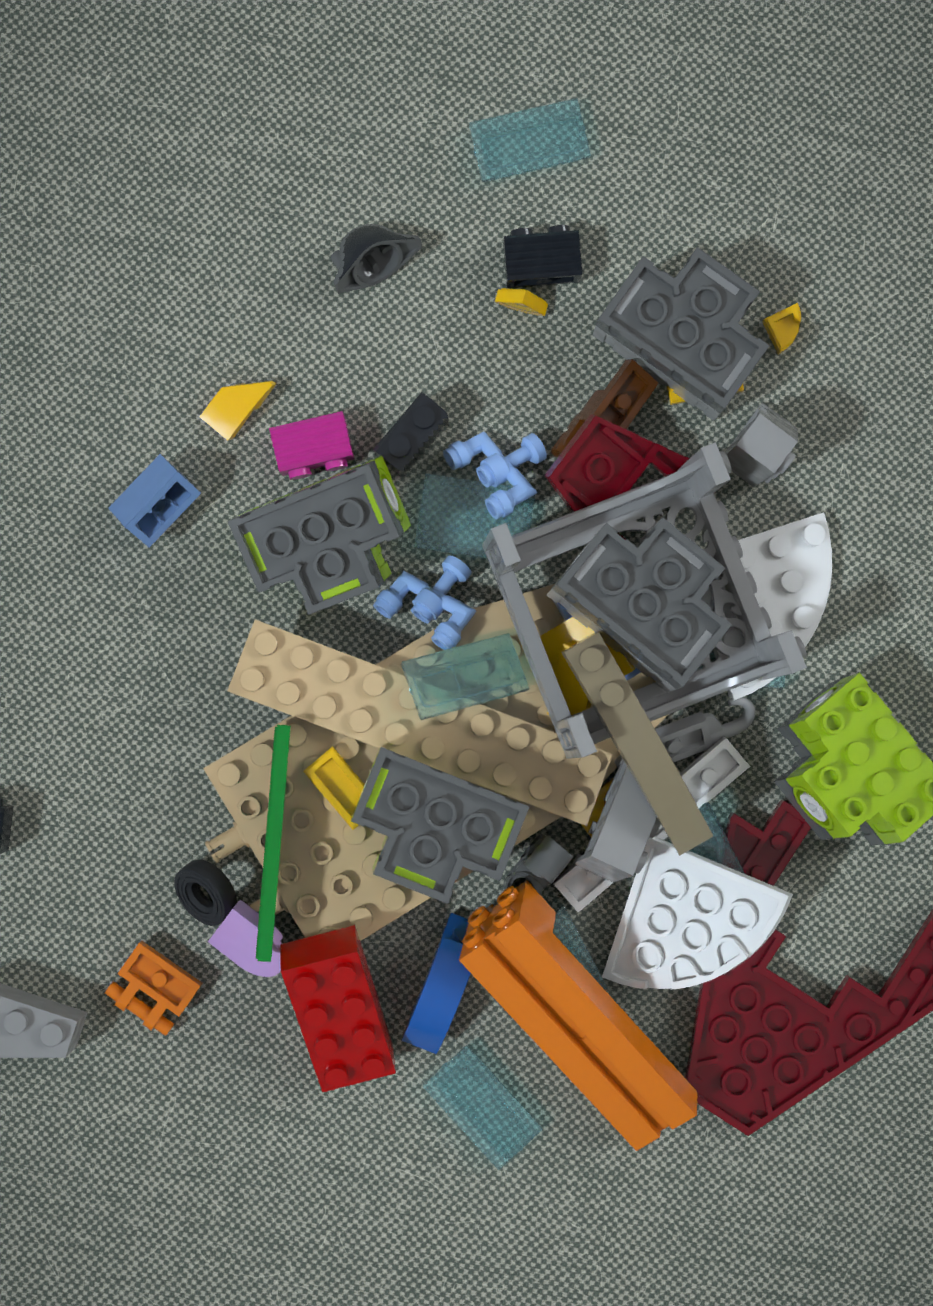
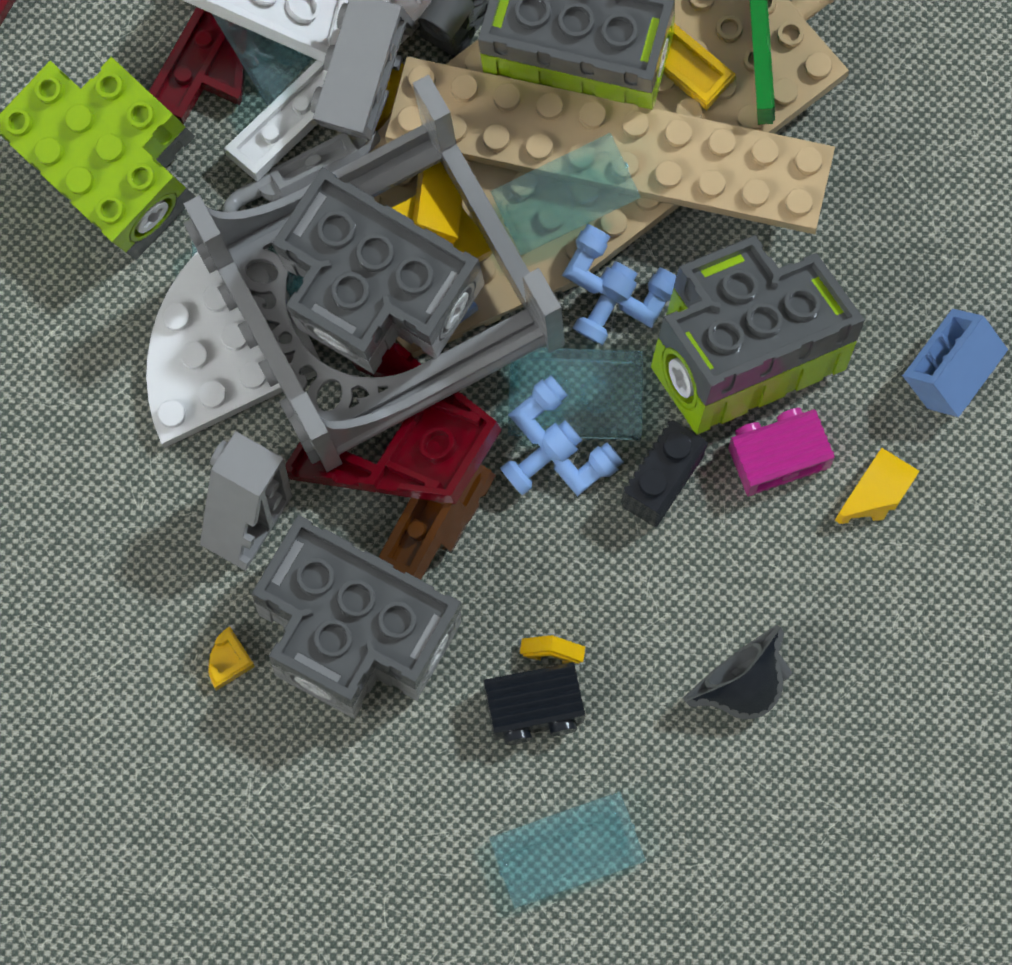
camera: 170 degrees right, 15 degrees down
(637, 742) = (367, 129): dark tan slope -> none

